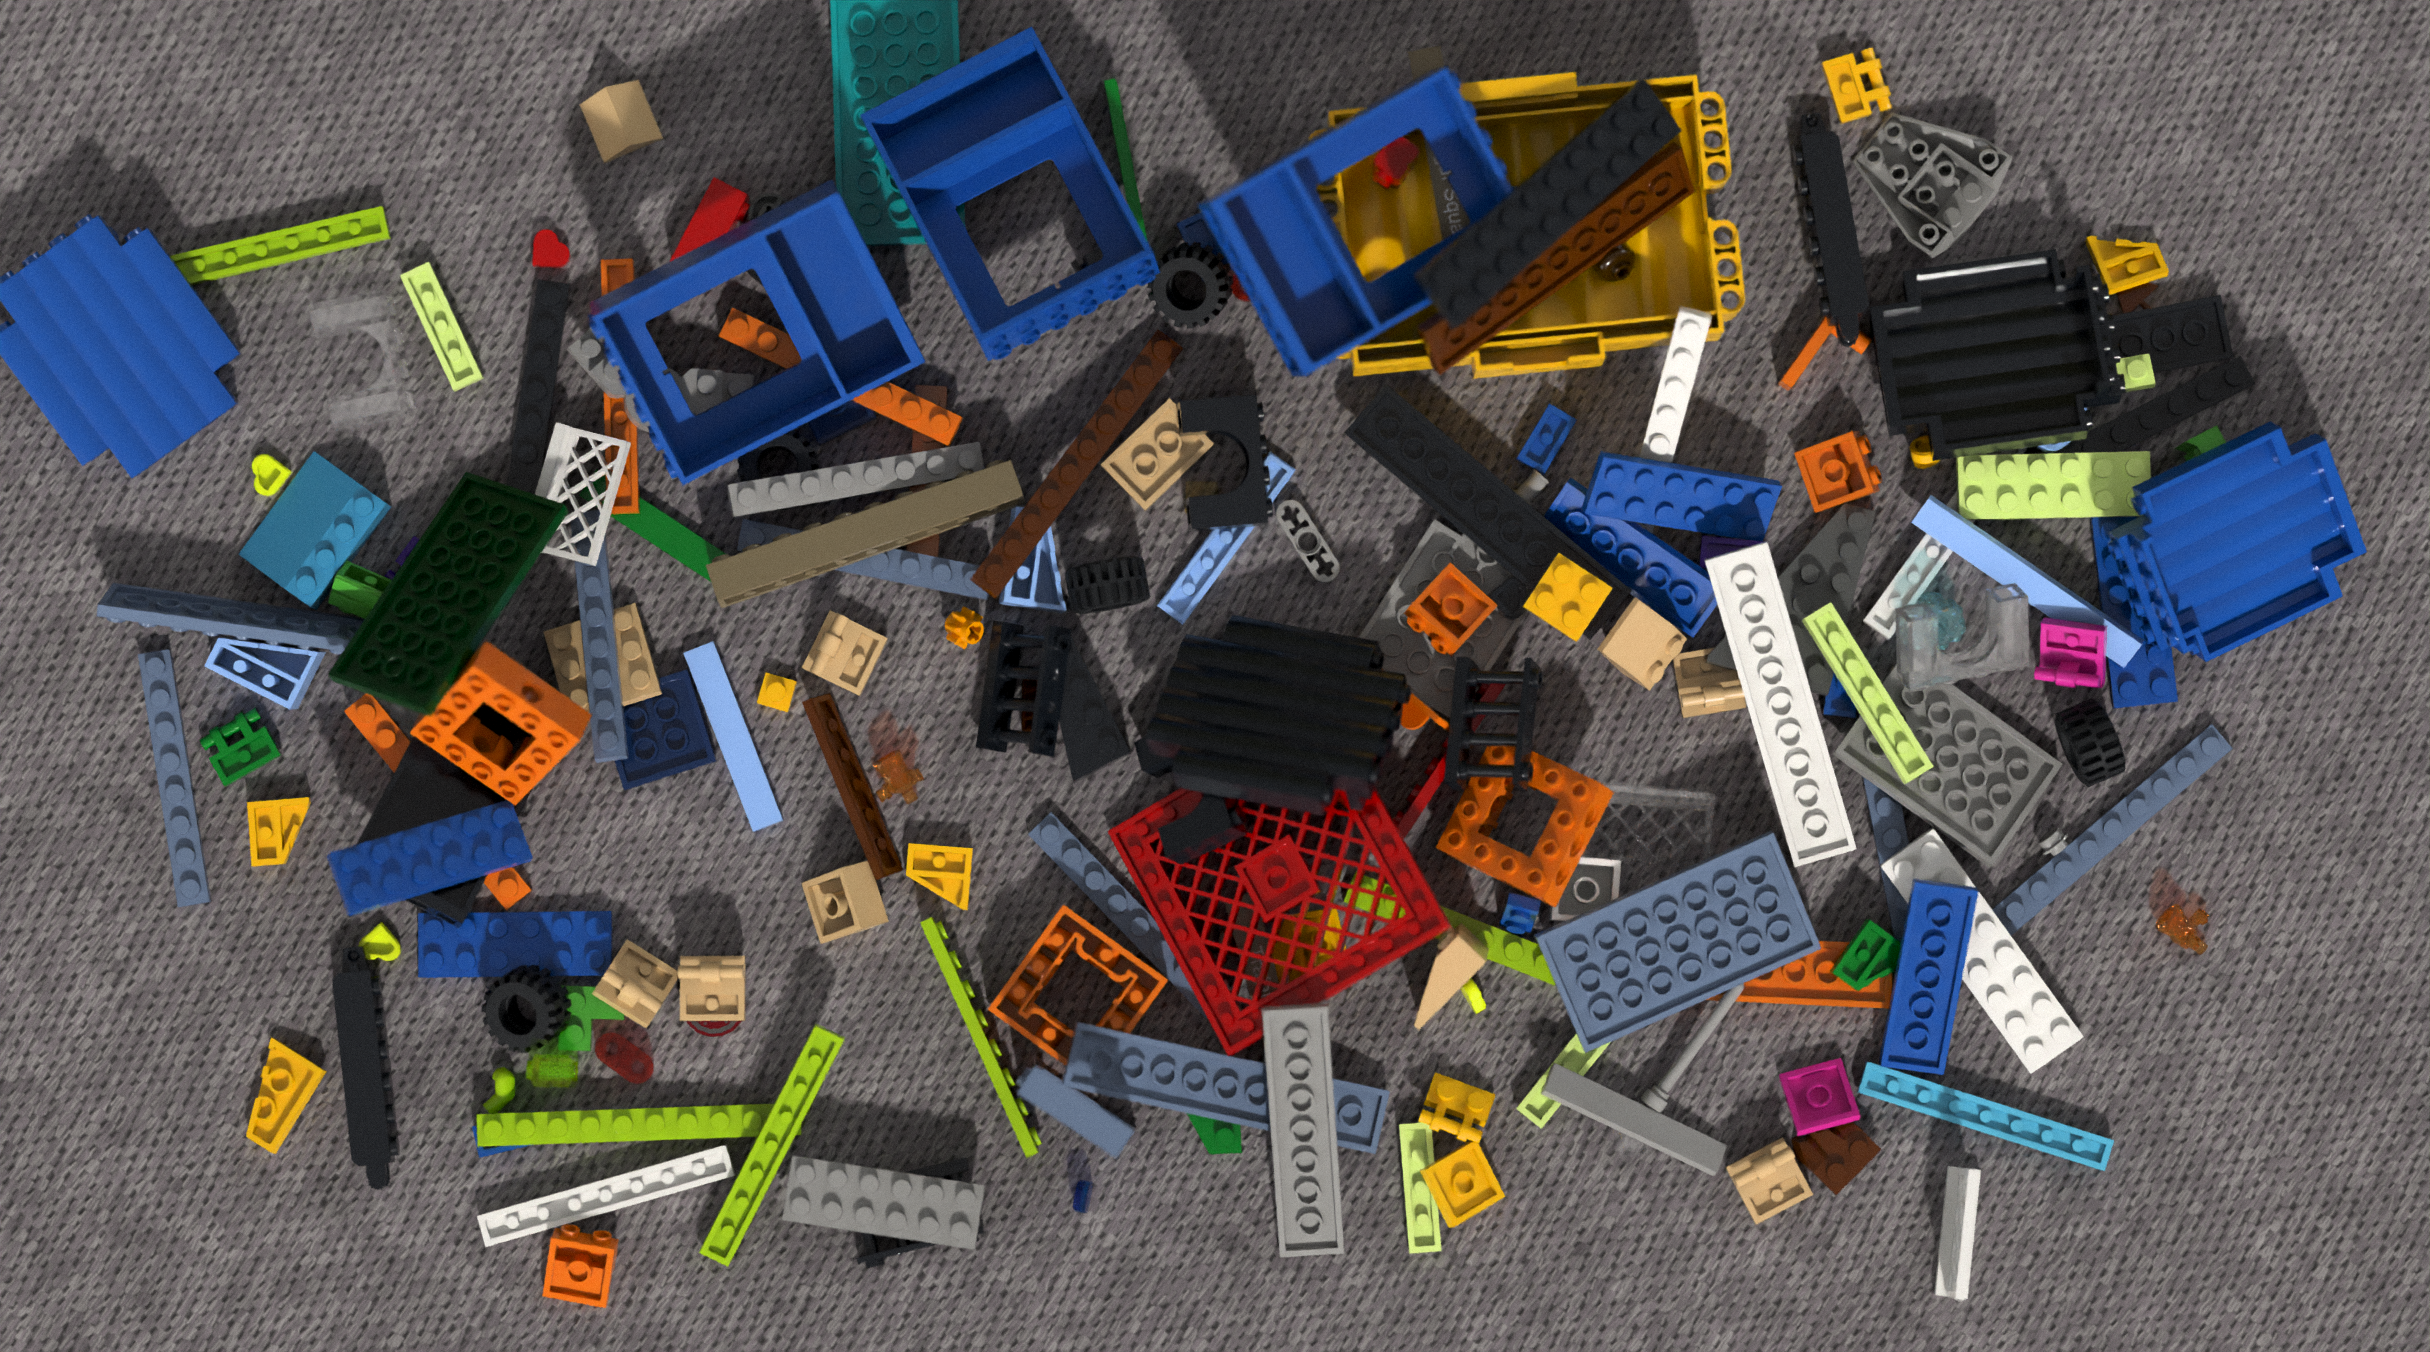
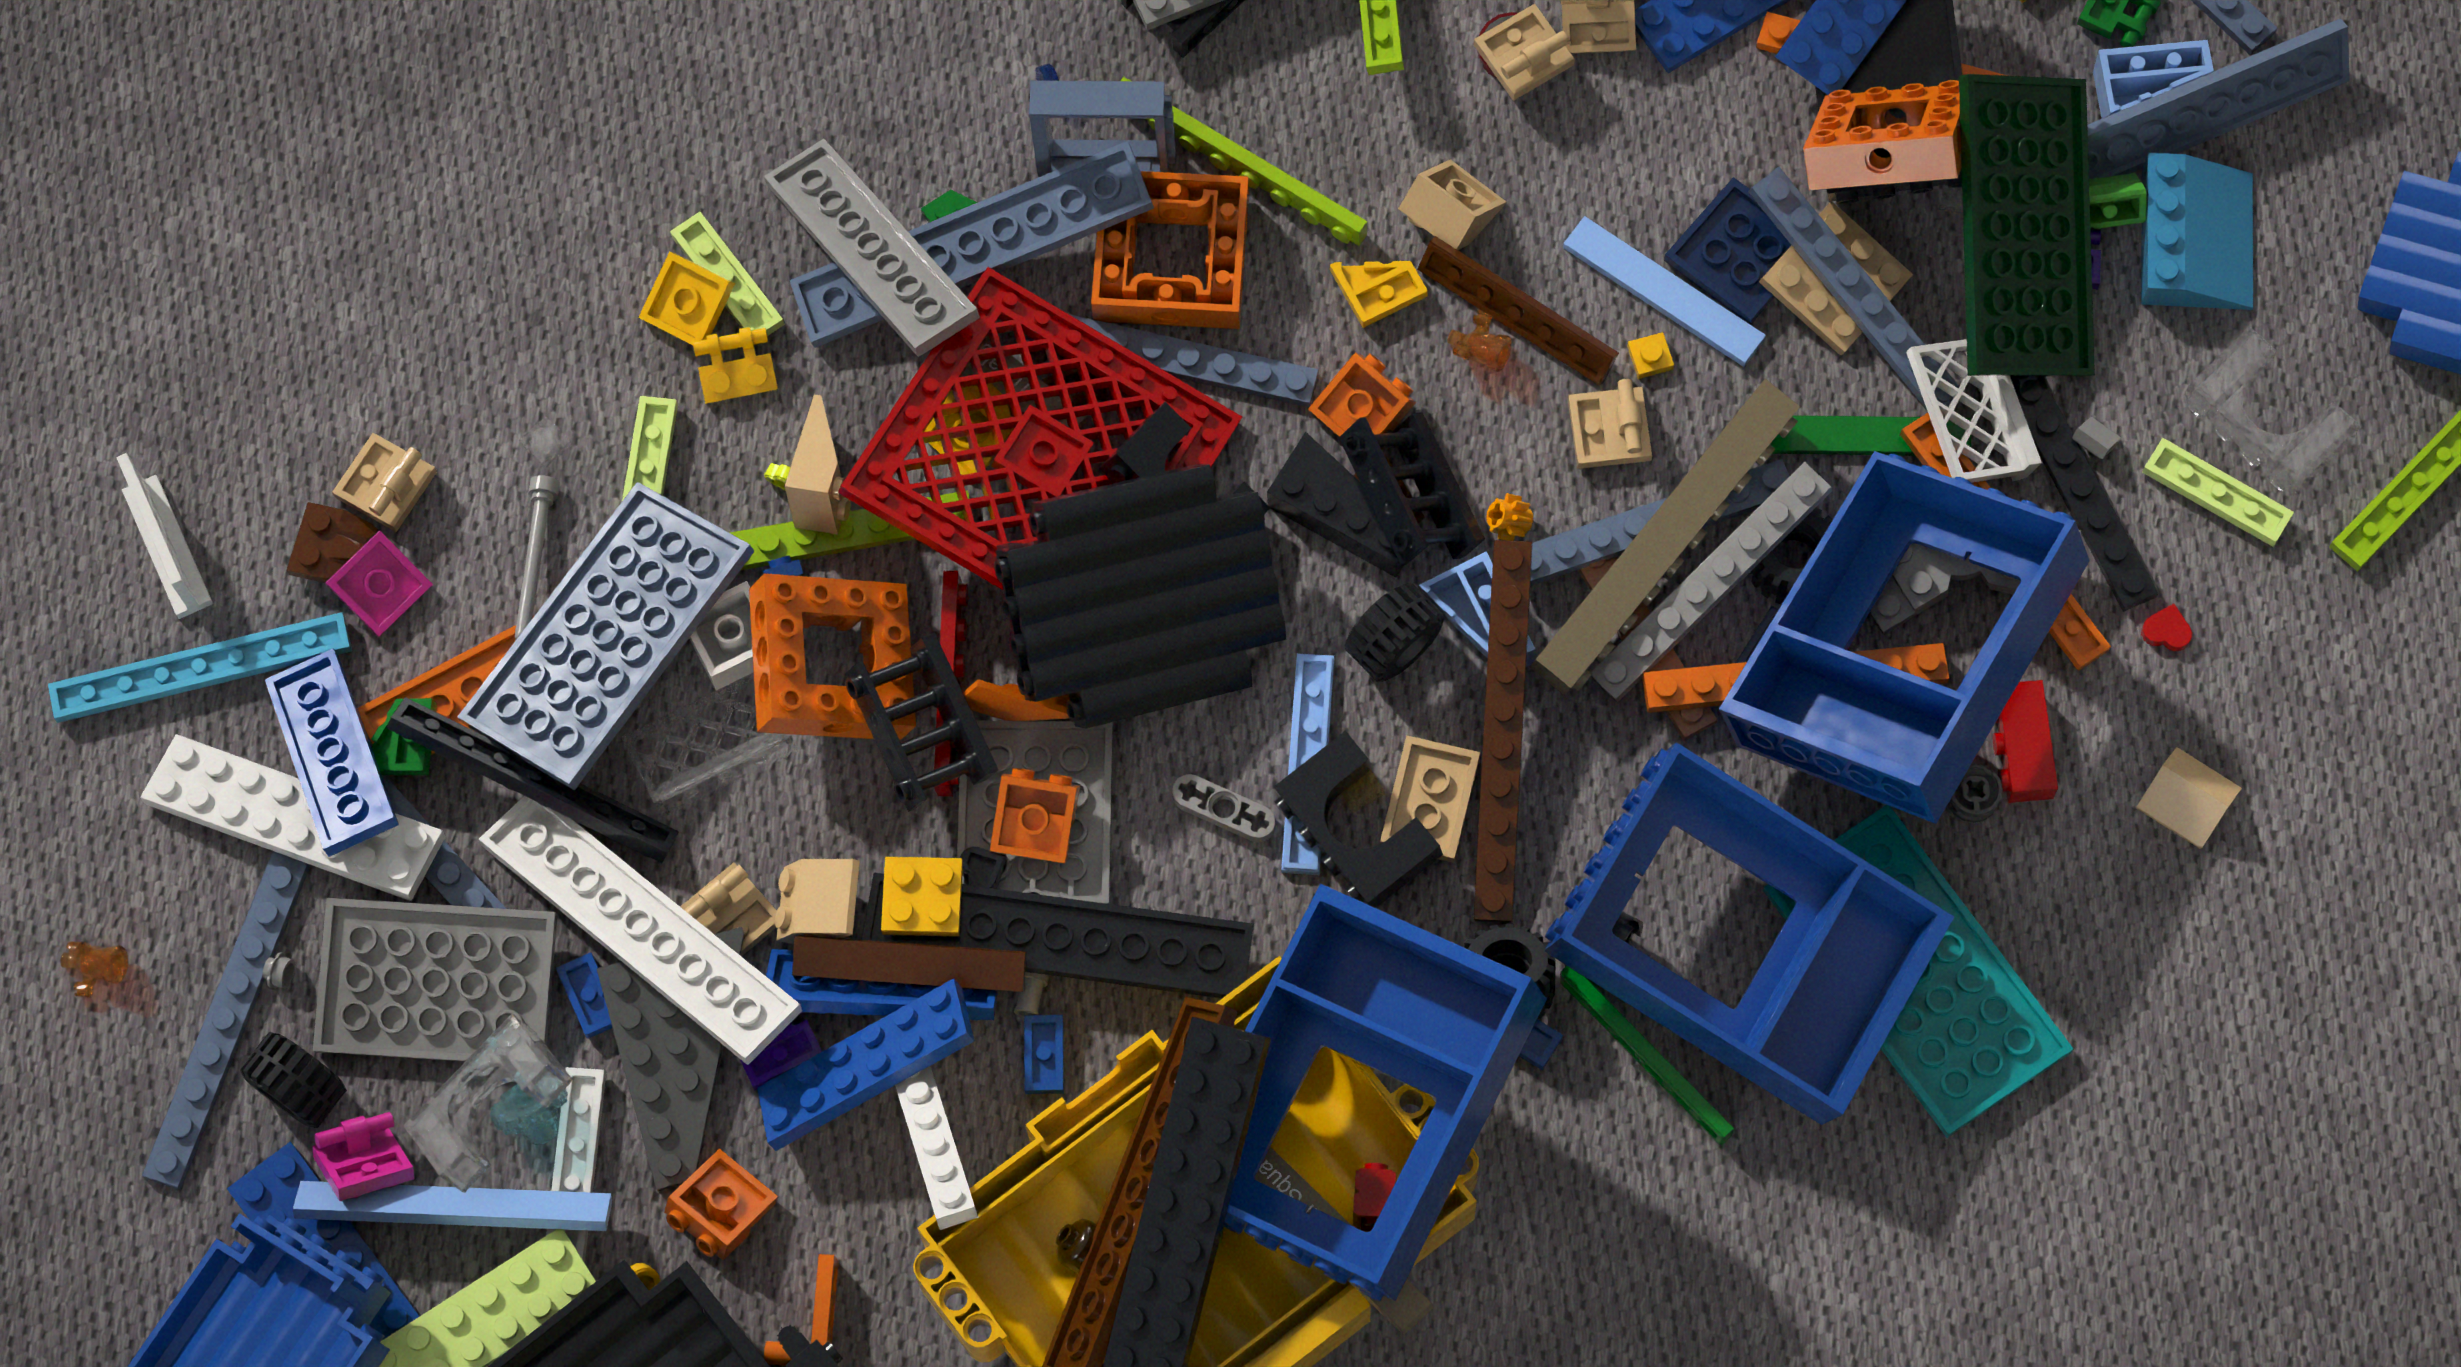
camera: 150 degrees right, 15 degrees down
(269, 474) = (2278, 262): neon yellow tile -> none
(499, 421) = (2096, 438): none -> light grey tile
(1012, 785) = (1361, 392): none -> orange plate
(1605, 554) = (908, 963): none -> reddish brown tile
(1634, 1119) = (552, 454): light grey tile -> none
(1814, 890) = (504, 767): none -> black plate
(1867, 693) = (554, 987): yellowish green plate -> none

